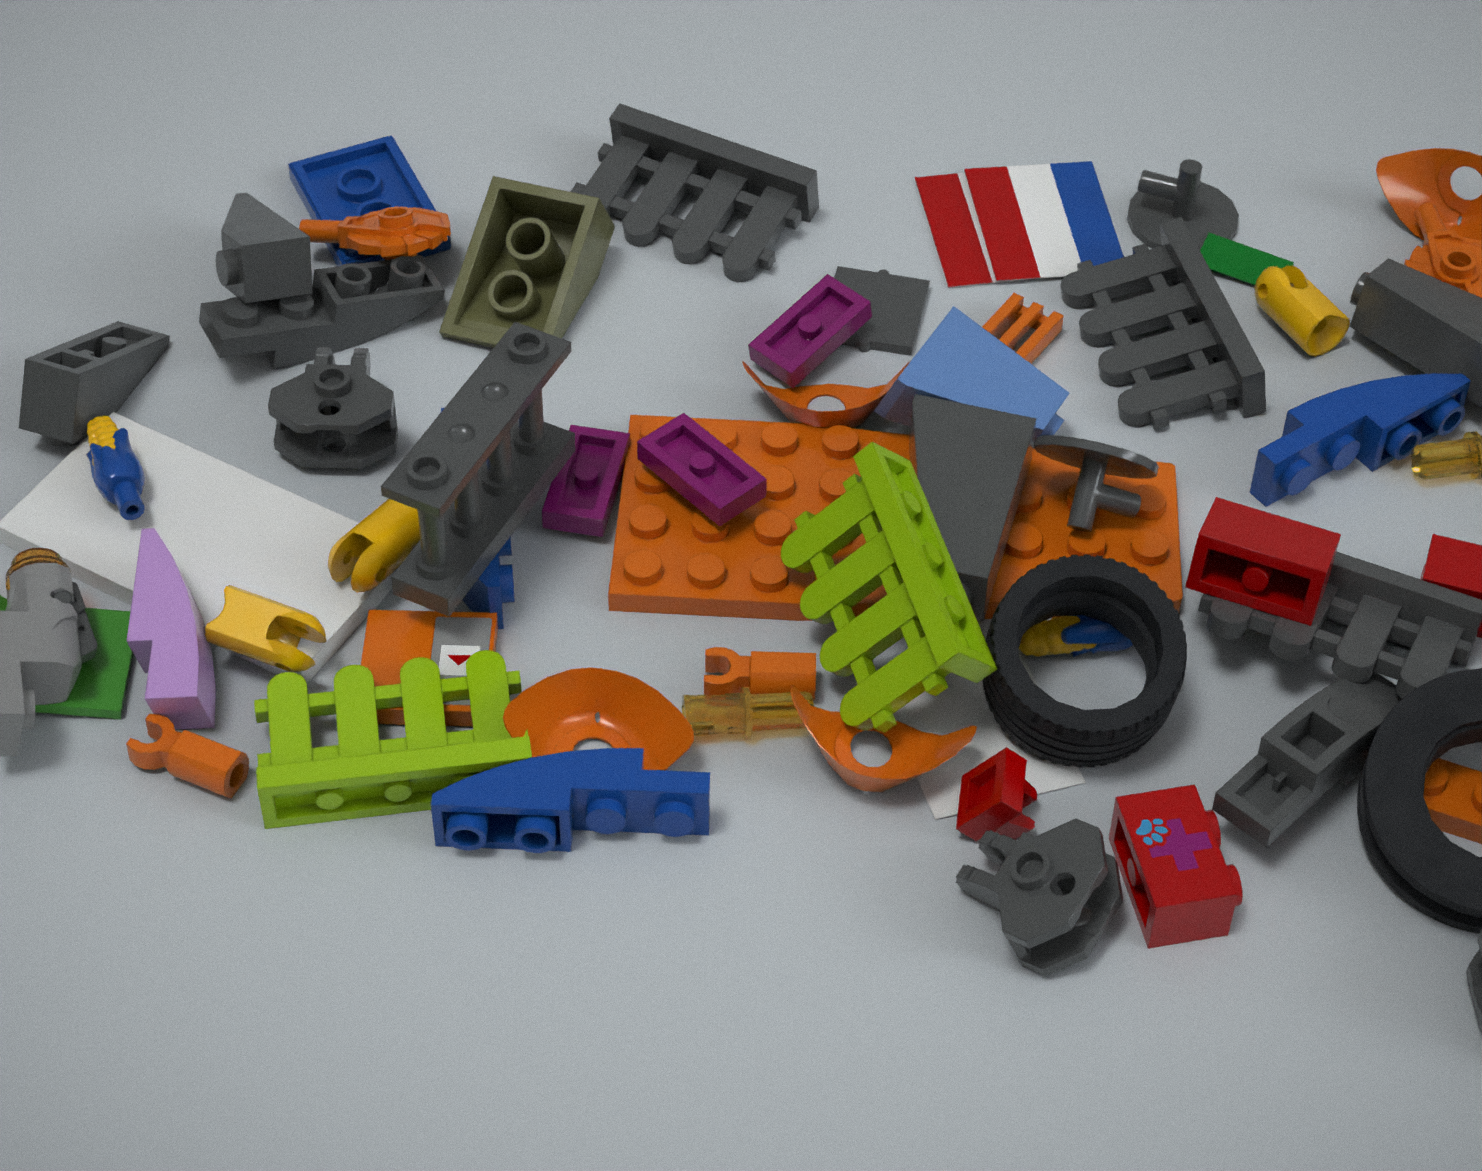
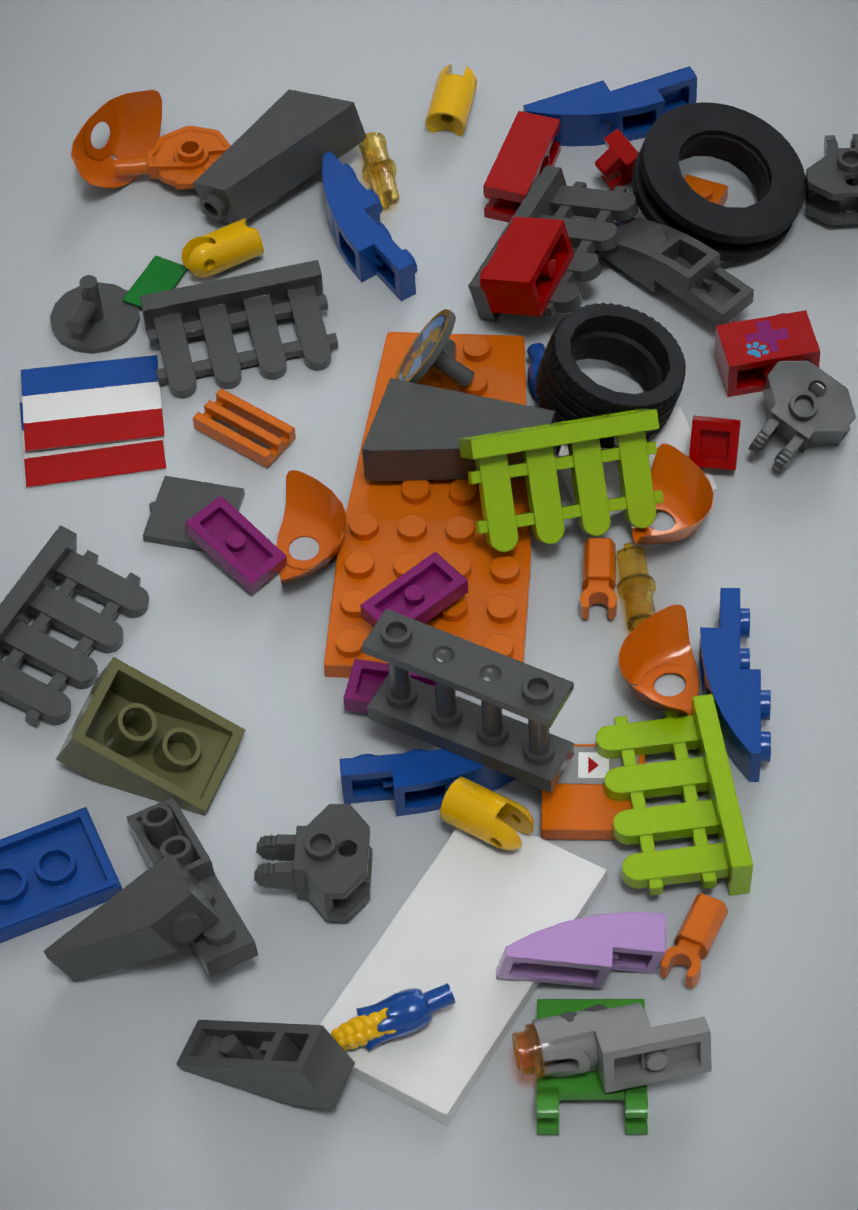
camera: 85 degrees left, 5 degrees up
(264, 630) = (580, 887): yellow piece -> none
(384, 232) = (102, 835): orange piece -> none
(976, 369) = (323, 433): medium blue slope -> none

